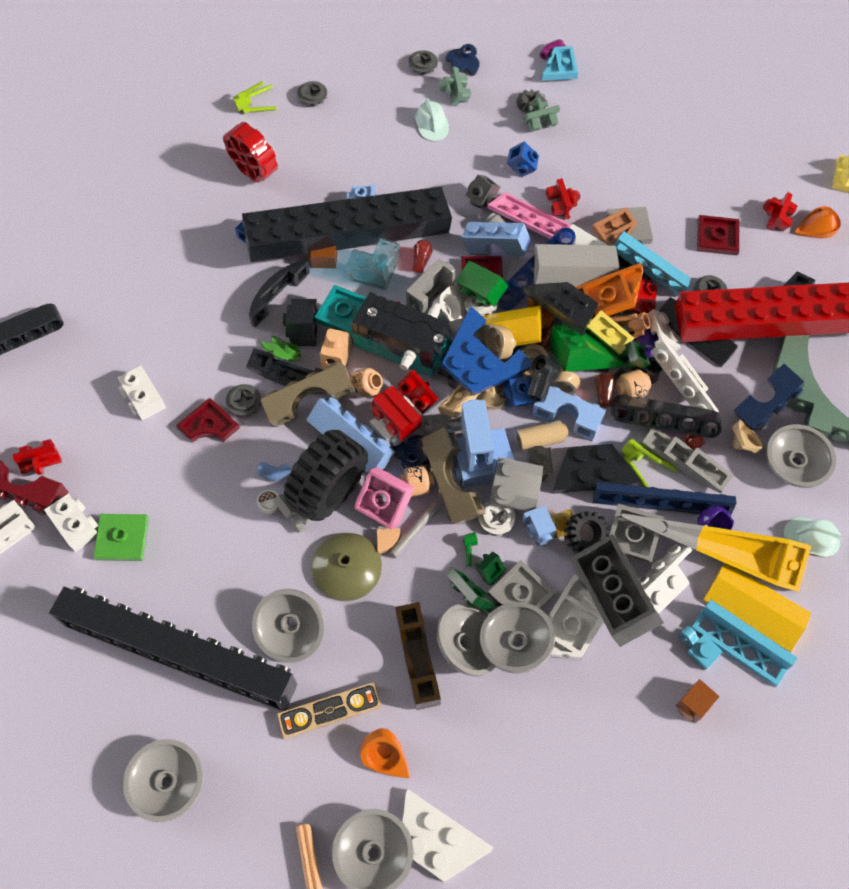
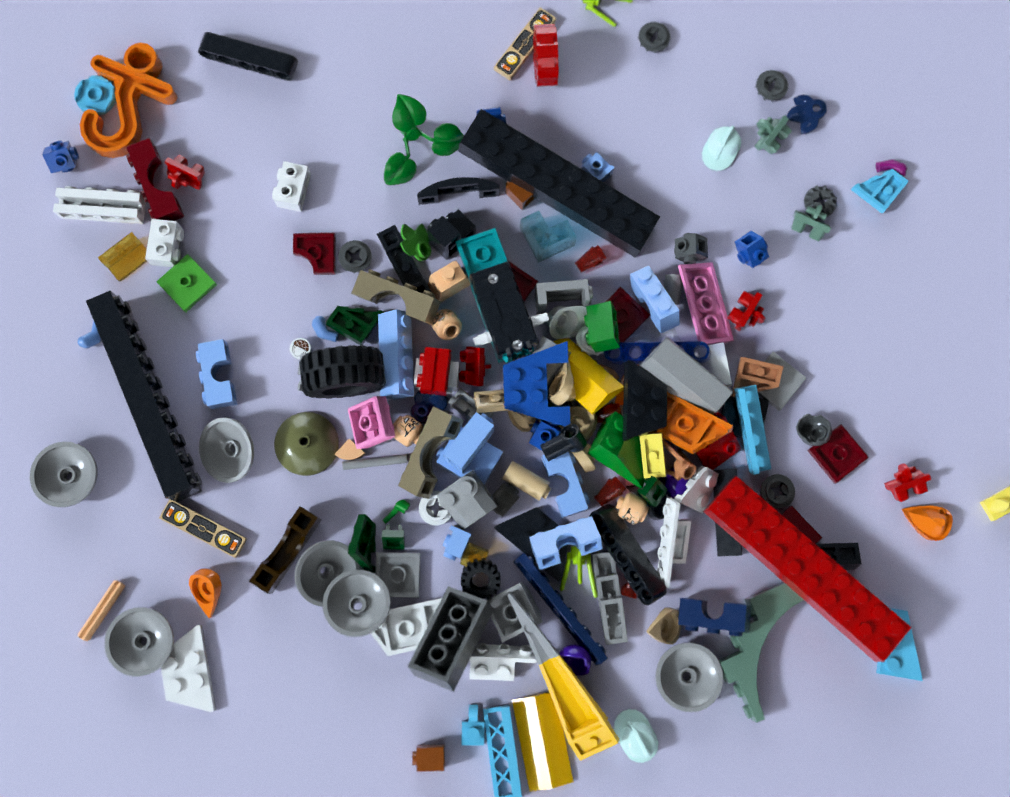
camera: 40 degrees right, 15 degrees up
(46, 563) = (124, 257): none -> clear yellow panel
(78, 650) = (89, 339): none -> medium blue arm
(192, 256) = (406, 117): none -> green plant
(223, 169) = (521, 46): none -> tile
(234, 592) = (213, 356): none -> light blue arch
(290, 444) = (353, 323): none -> dark green wing
(622, 428) = (580, 534): none -> light blue arch
(689, 230) = (814, 430): none -> dark grey hair

